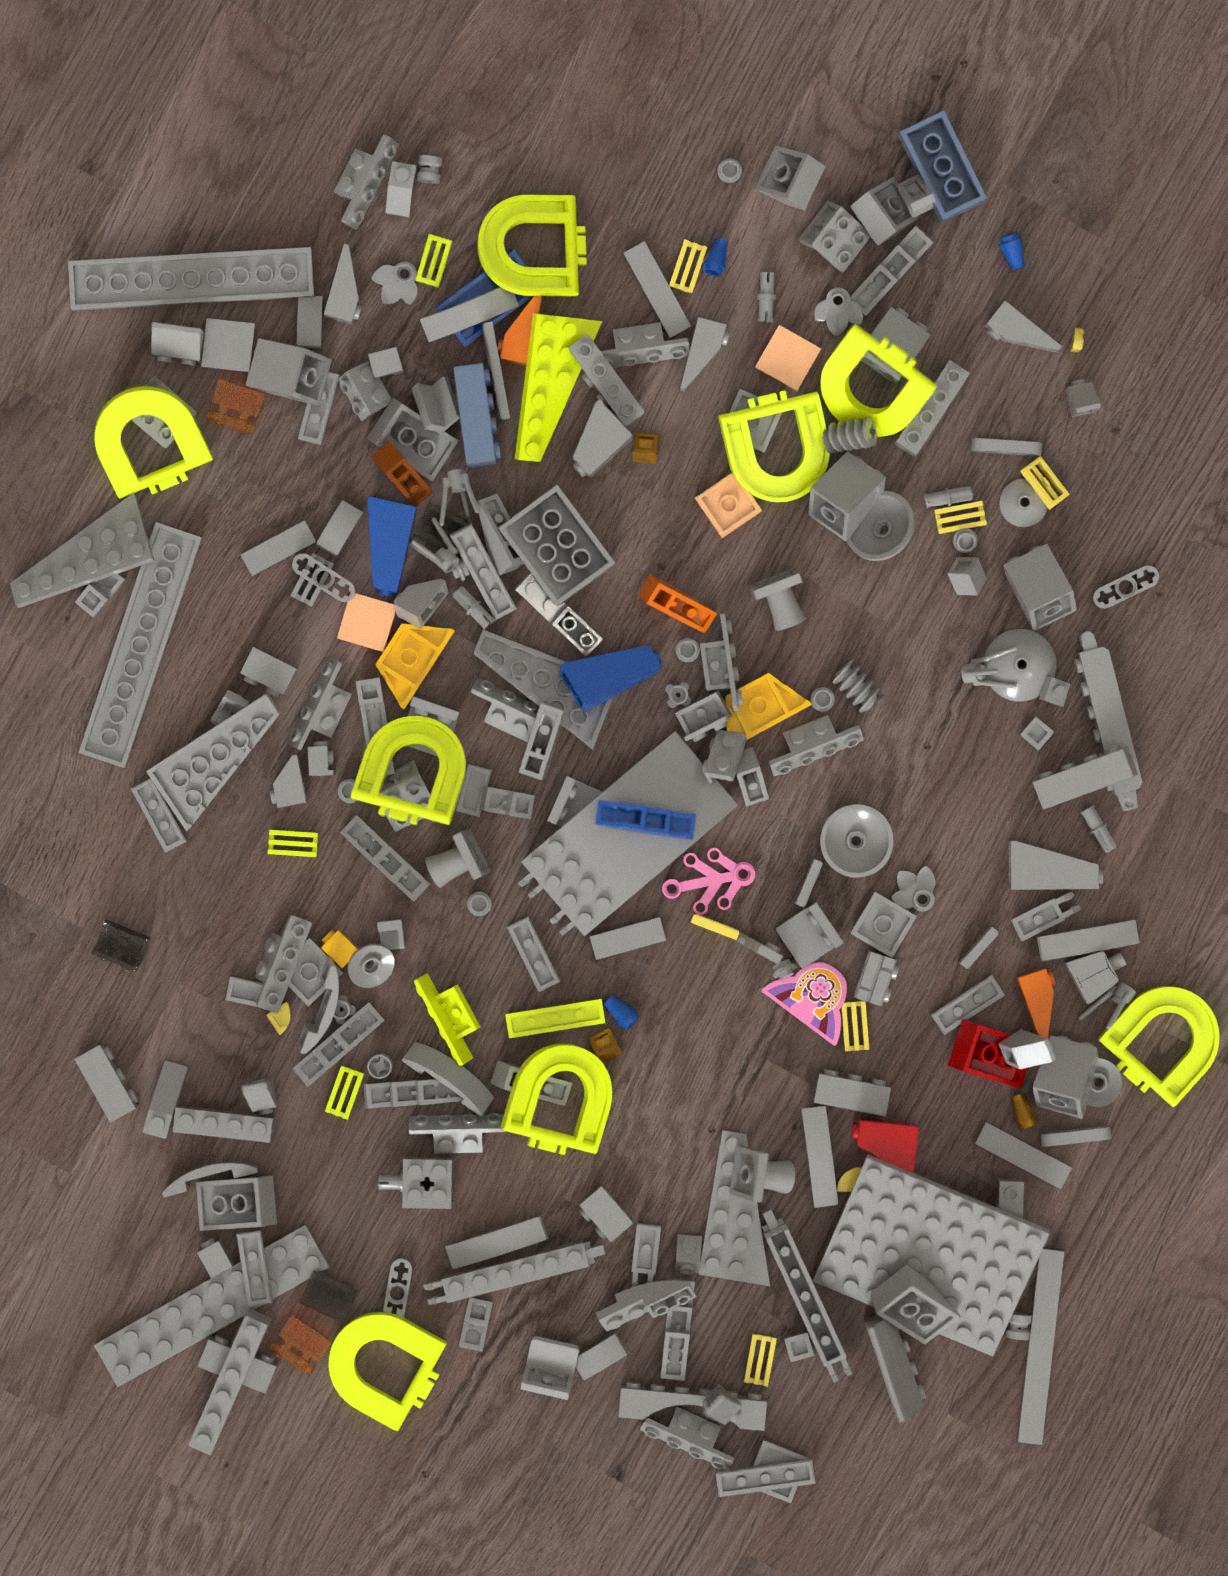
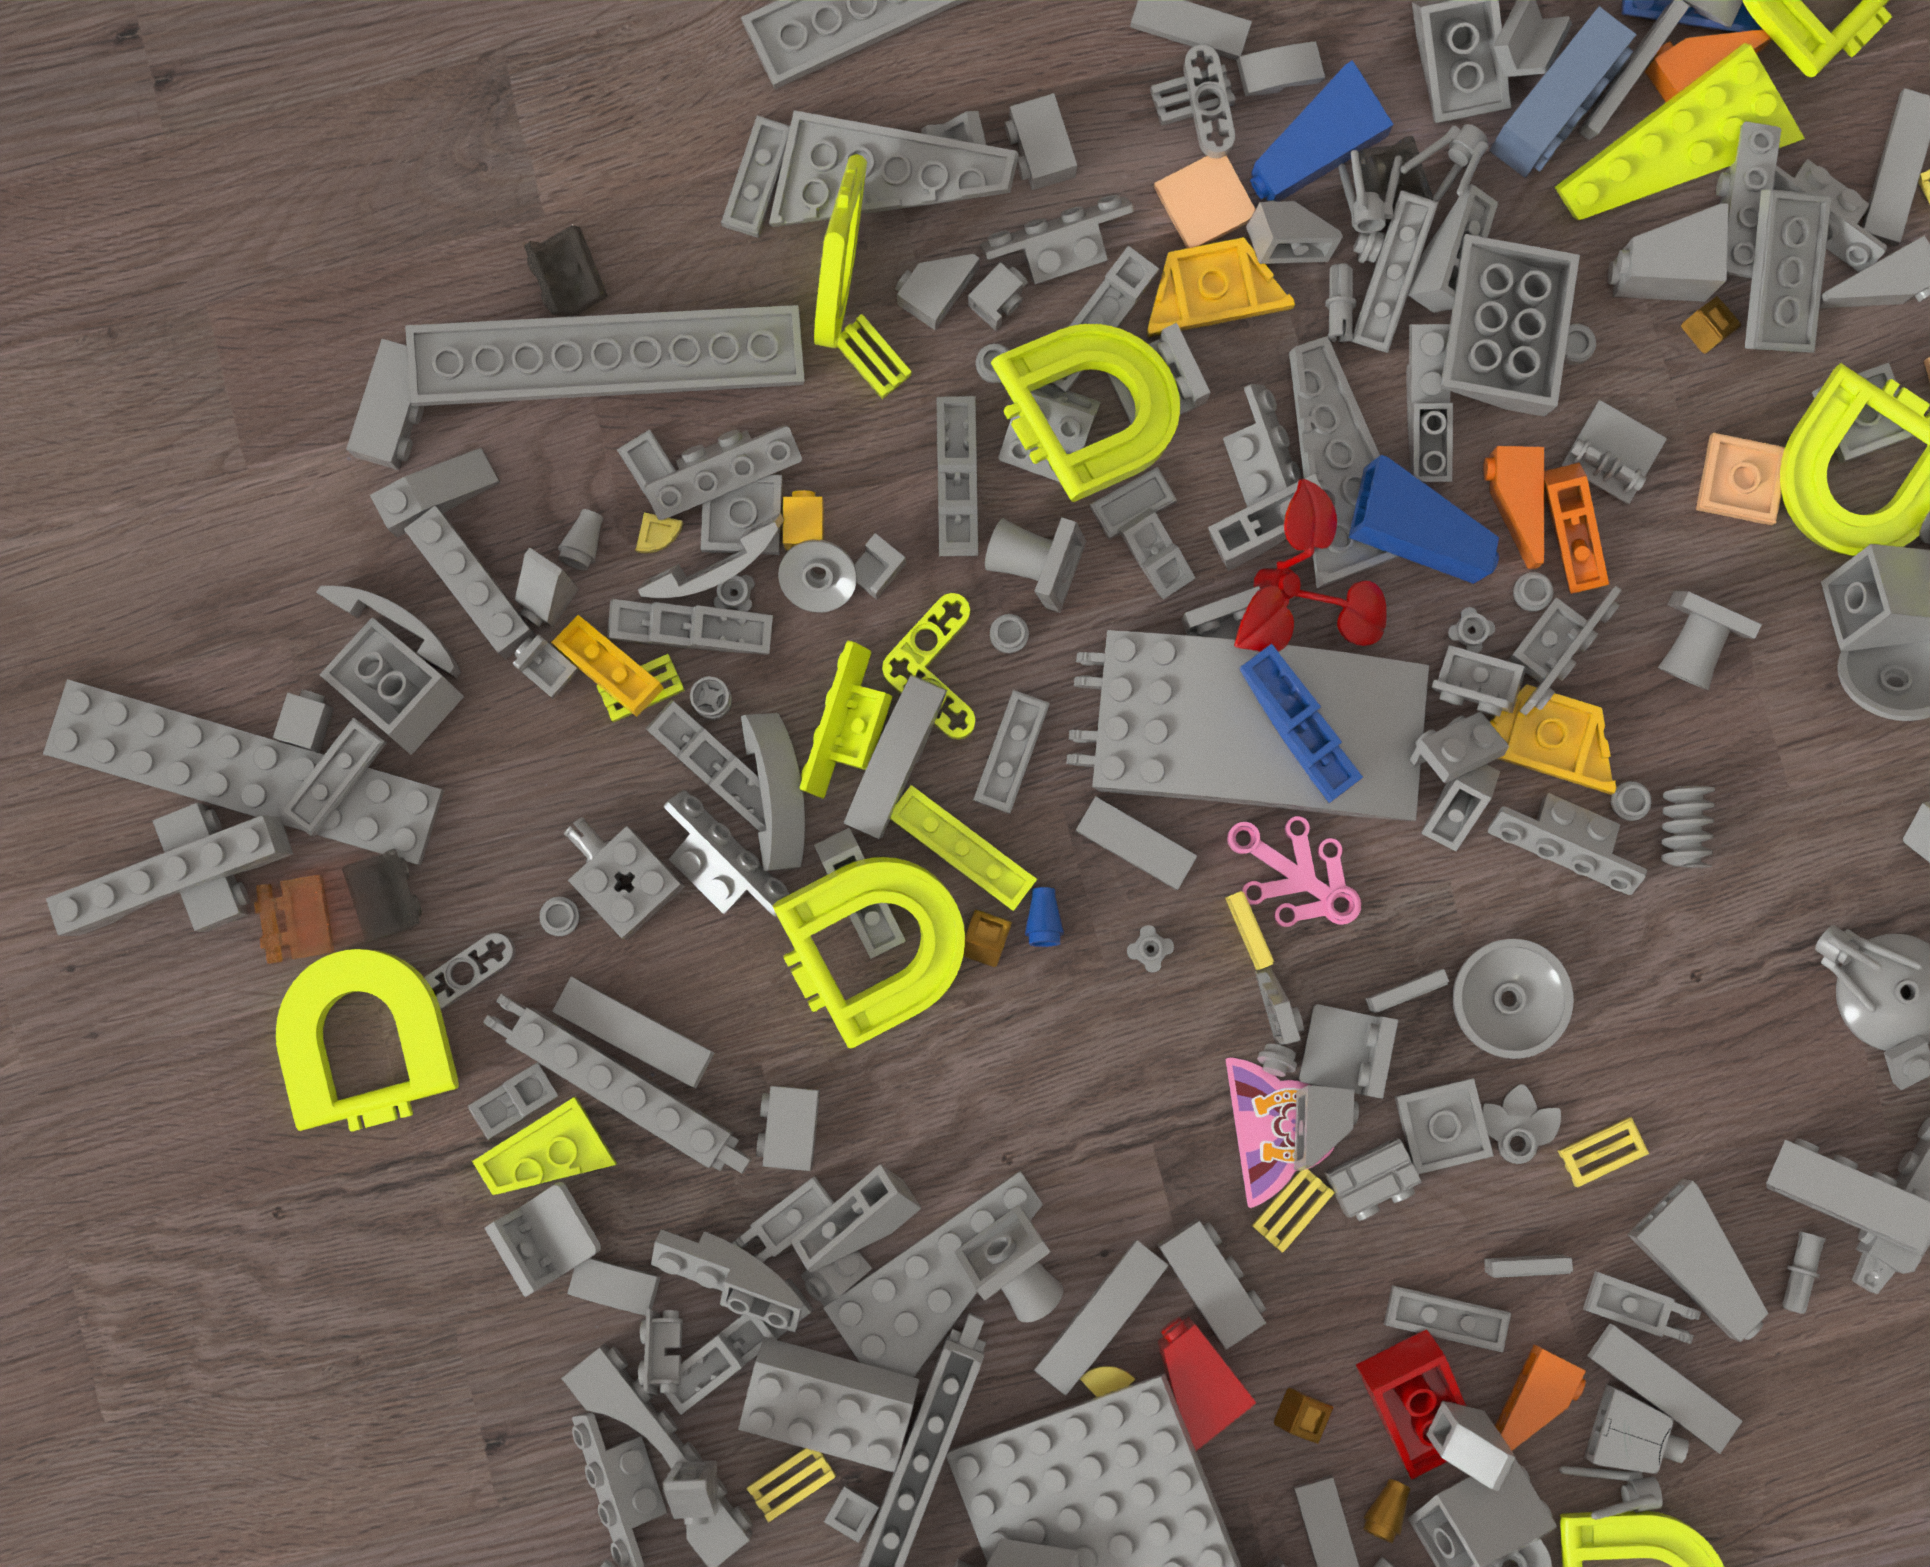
camera: 45 degrees right, 5 degrees down
(178, 965) = (604, 355): none -> light grey plate
(237, 819) = (839, 254): none -> neon yellow piece
(252, 1055) = (581, 542): none -> light grey cone
(293, 1126) = (544, 665): none -> light grey bracket
(321, 1098) = (607, 665): none -> yellow plate
(401, 473) = (1416, 70): dark orange slope -> none
(413, 1226) = (559, 916): none -> light grey plate
(452, 955) = (919, 660): none -> neon yellow beam
(486, 1009) = (895, 756): none -> light grey slope
(511, 1331) = (545, 1151): none -> neon yellow wing
(560, 730) = (1267, 621): none -> red plant
(595, 518) = (1580, 344): none -> light grey tile
(636, 613) = (1518, 492): none -> orange slope
(653, 1371) = (657, 1367): none -> light grey hinge
(655, 396) = (1787, 271): none -> light grey tile
(660, 550) = (1615, 451): none -> light grey hinge
(674, 1222) = (857, 1219): none -> light grey slope
(675, 982) = (1139, 949): none -> light grey plate
(742, 1311) = (828, 1404): none -> light grey brick
(828, 976) = (1321, 1122): none -> light grey slope
(948, 1108) = (1303, 1415): none -> pearl gold slope
(955, 884) = (1573, 1165): none -> light yellow tile
(1036, 733) = (1840, 1089): light grey plate -> none

